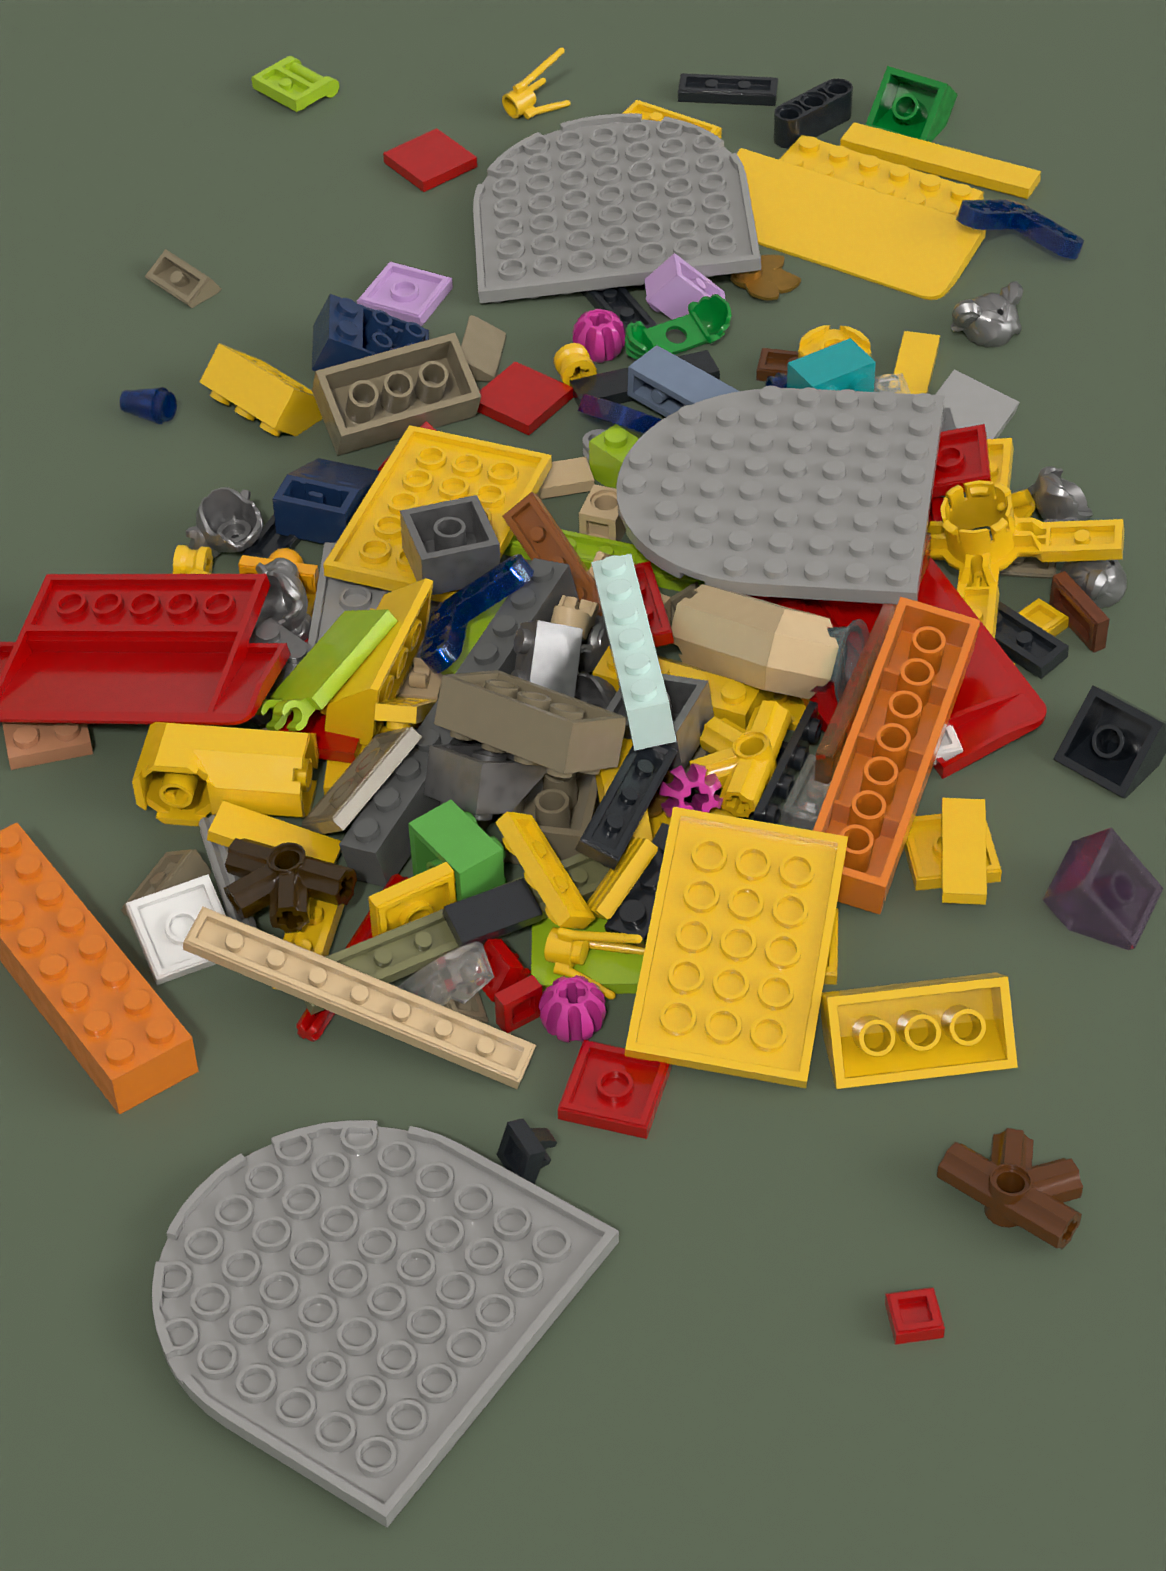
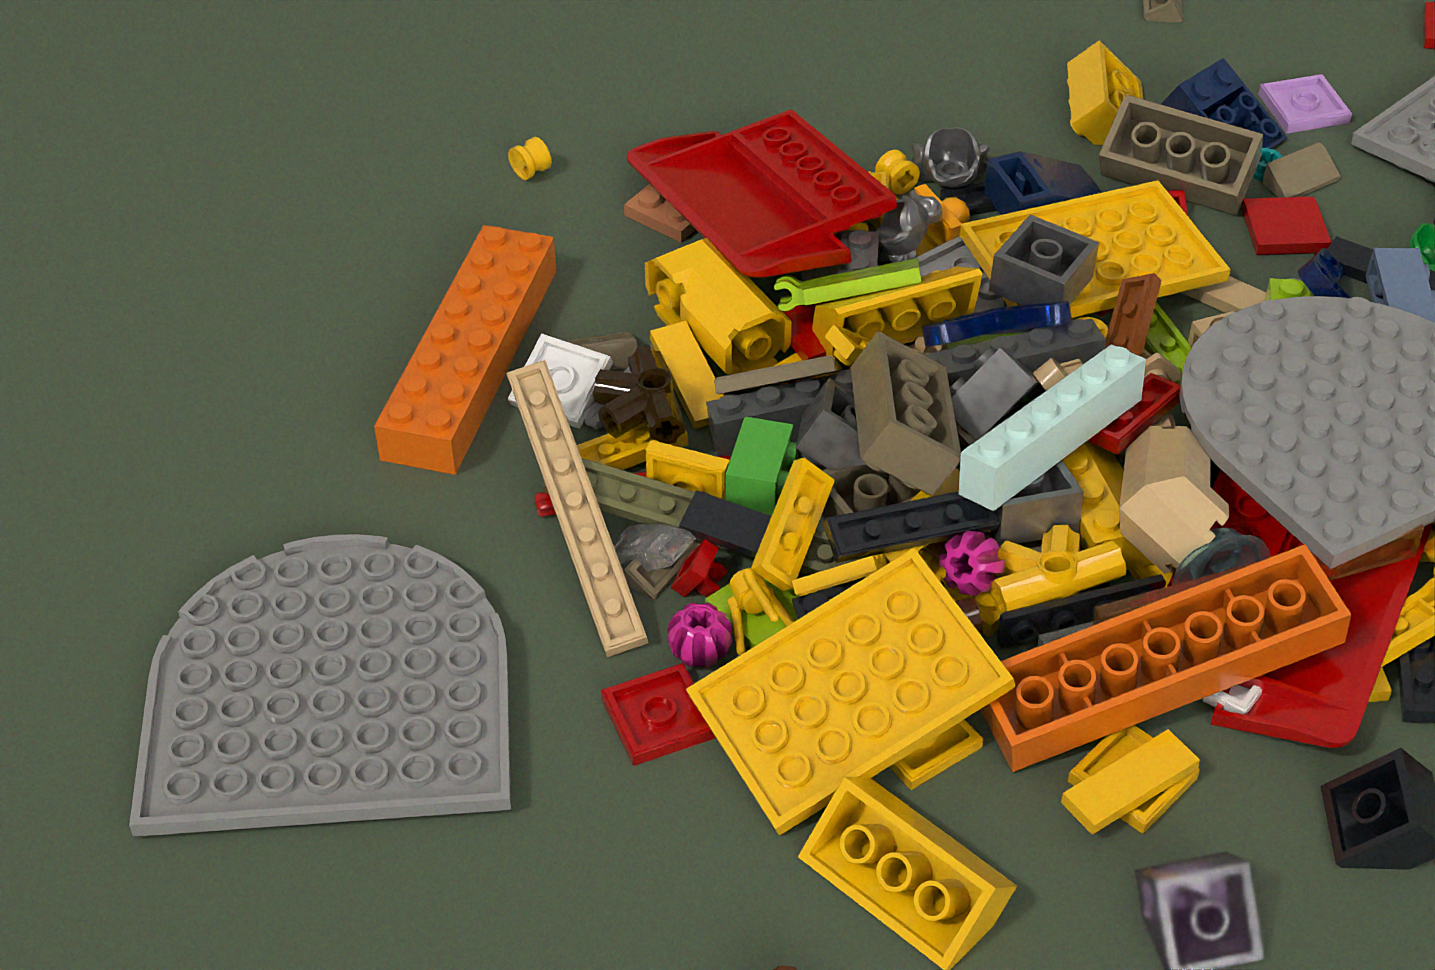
camera: 50 degrees right, 0 degrees up
(151, 404) = (1022, 58): clear blue cone -> none
(518, 1004) = (670, 597): red tile -> none
(524, 1149) = (539, 696): black tile -> none
(573, 362) = (1358, 220): yellow wheel -> none
(600, 334) = (1399, 217): dark pink piece -> none

